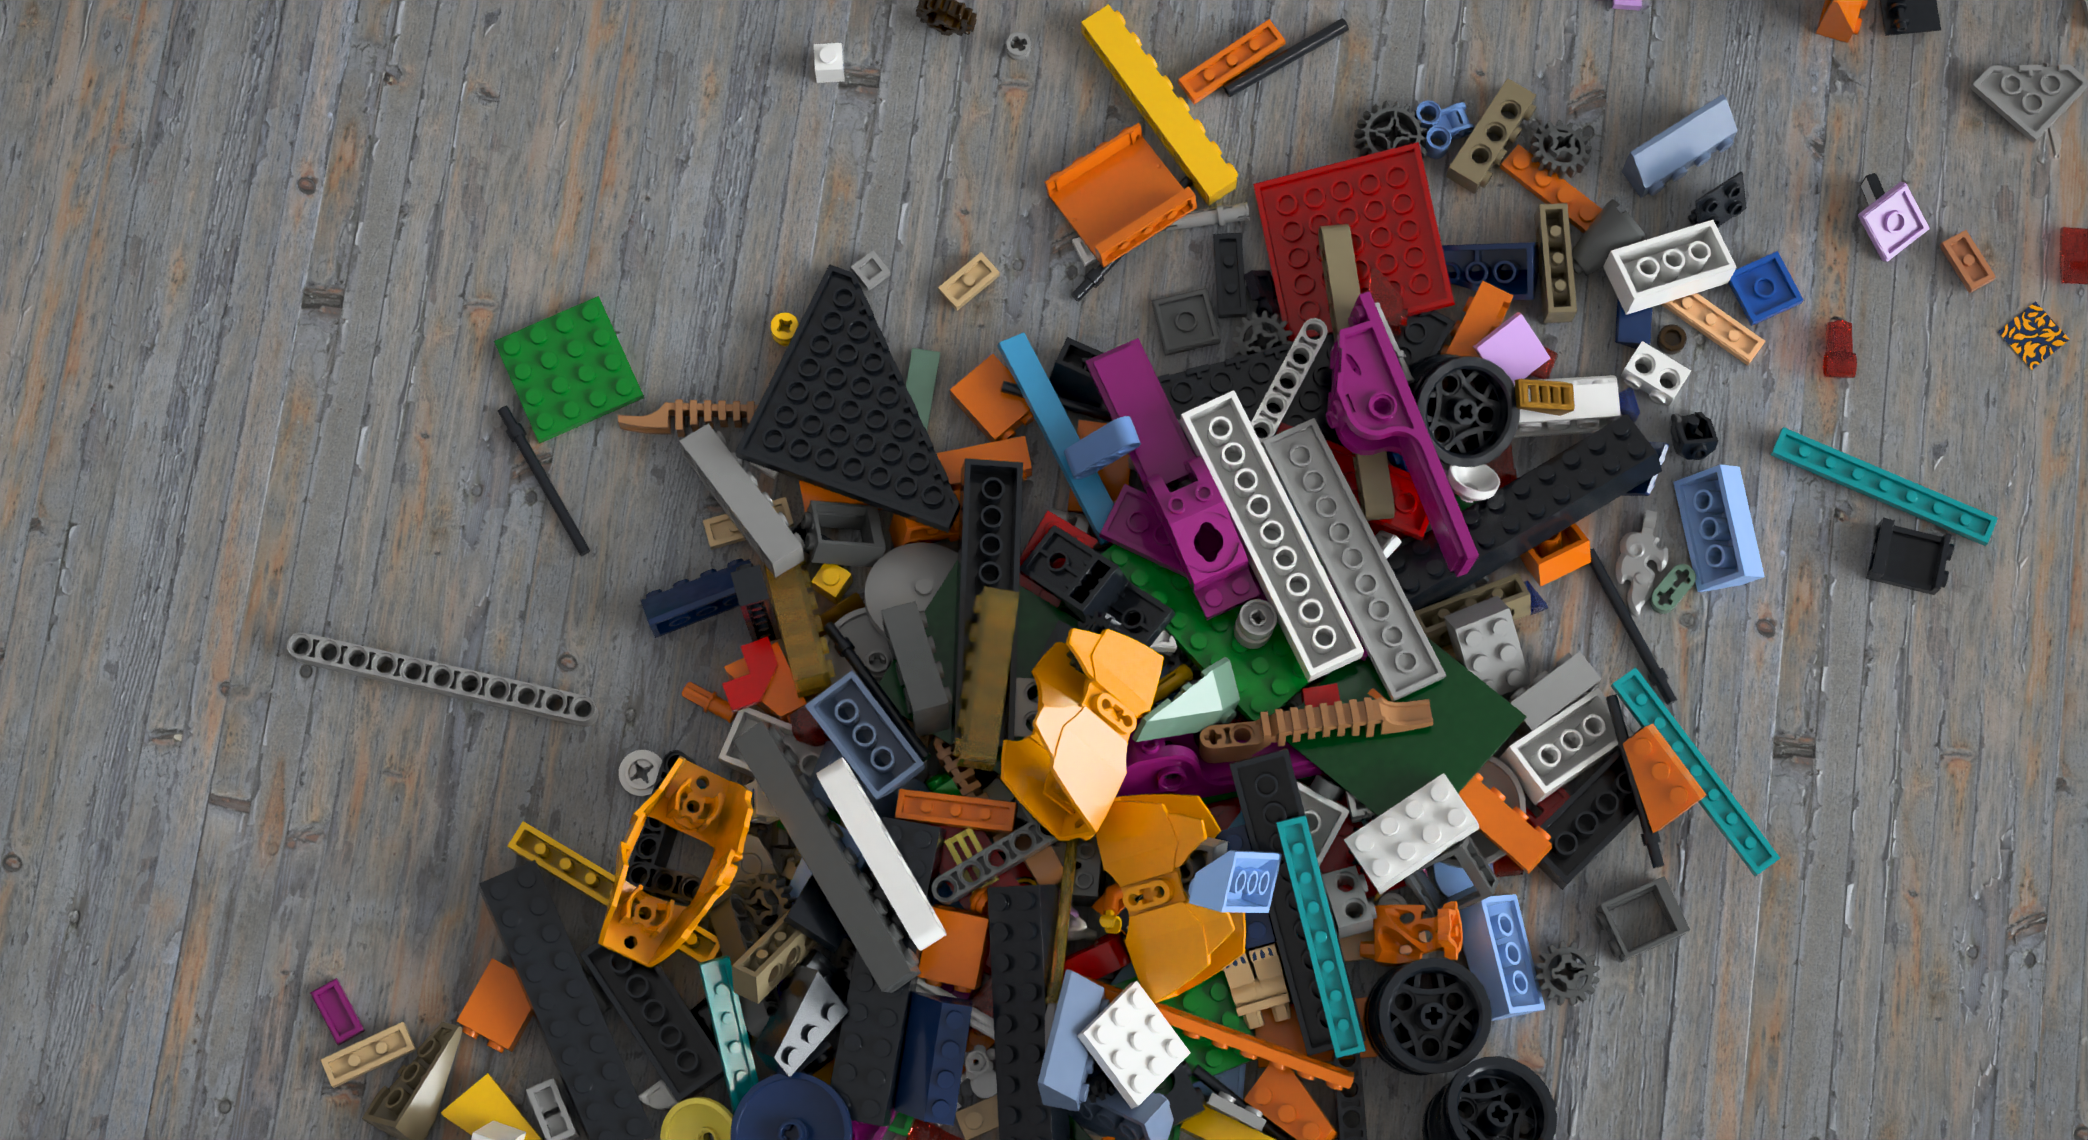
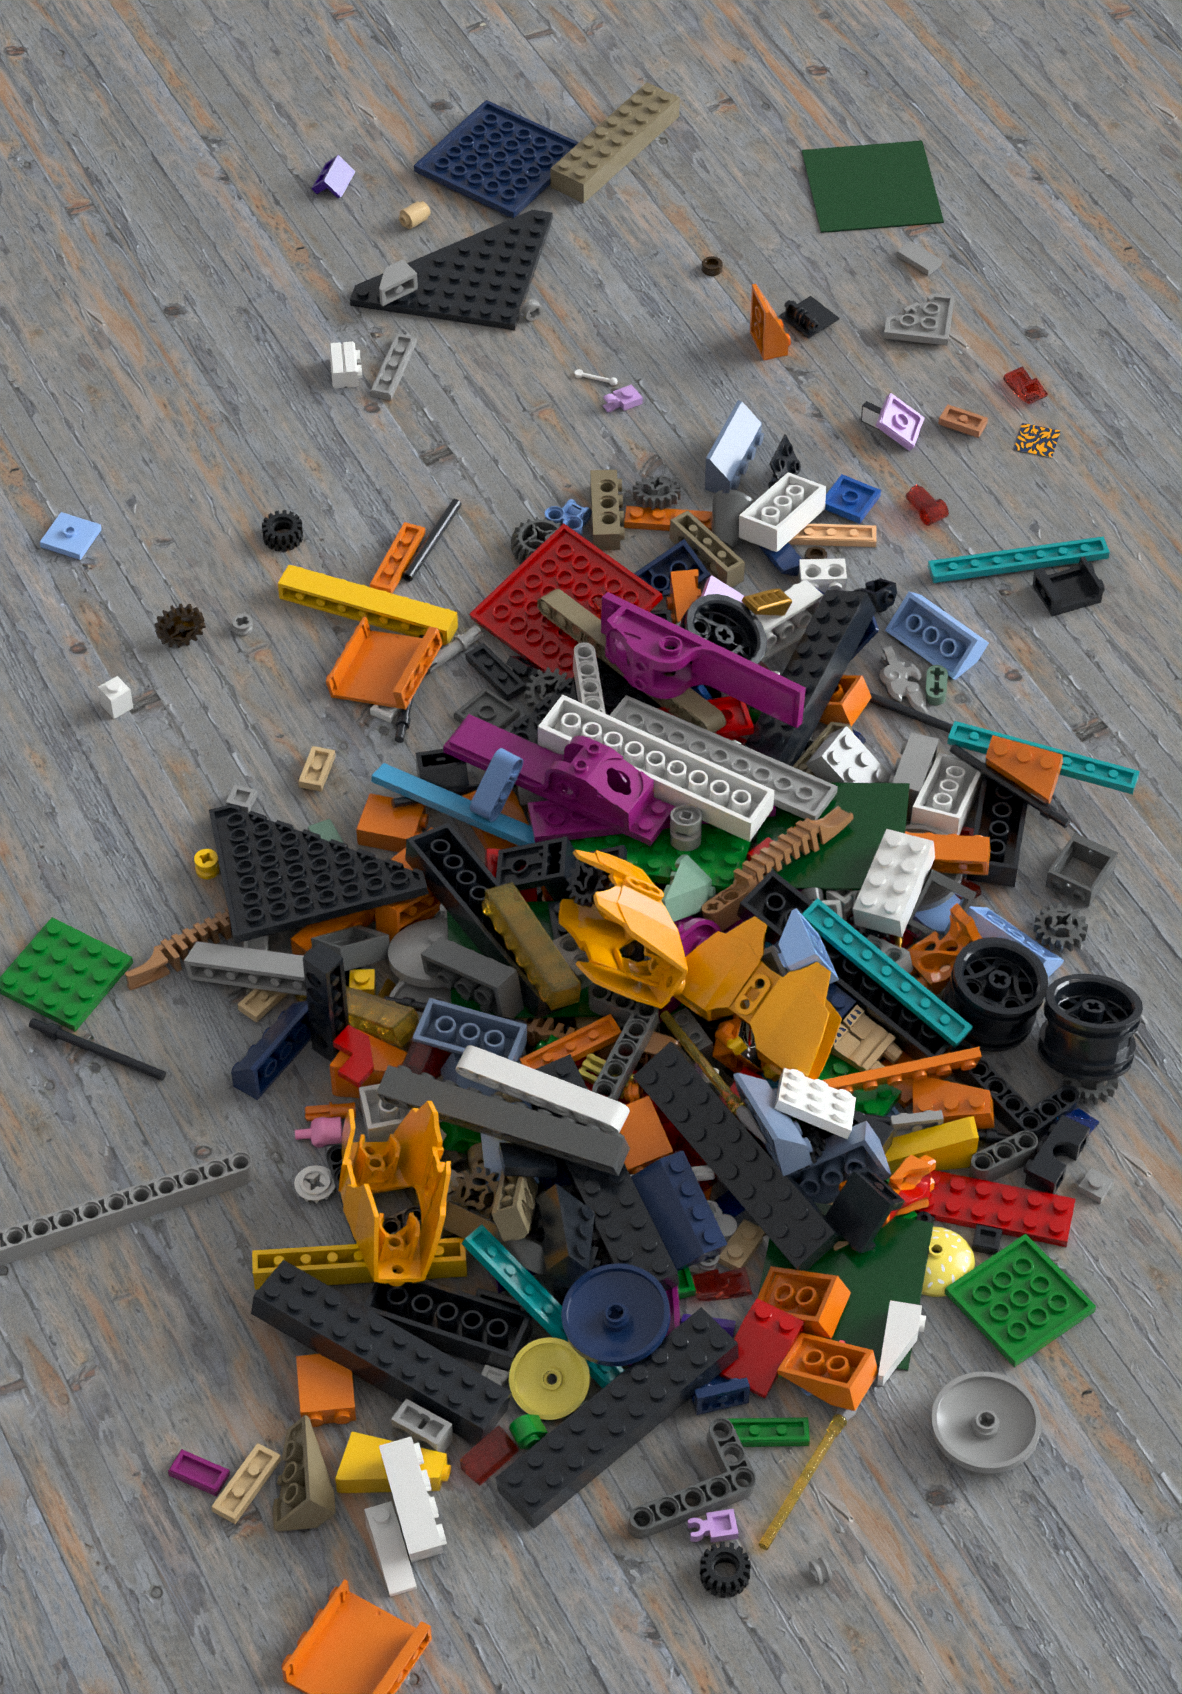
camera: 35 degrees left, 25 degrees down
(688, 719) = (322, 1132): none -> bright pink piece

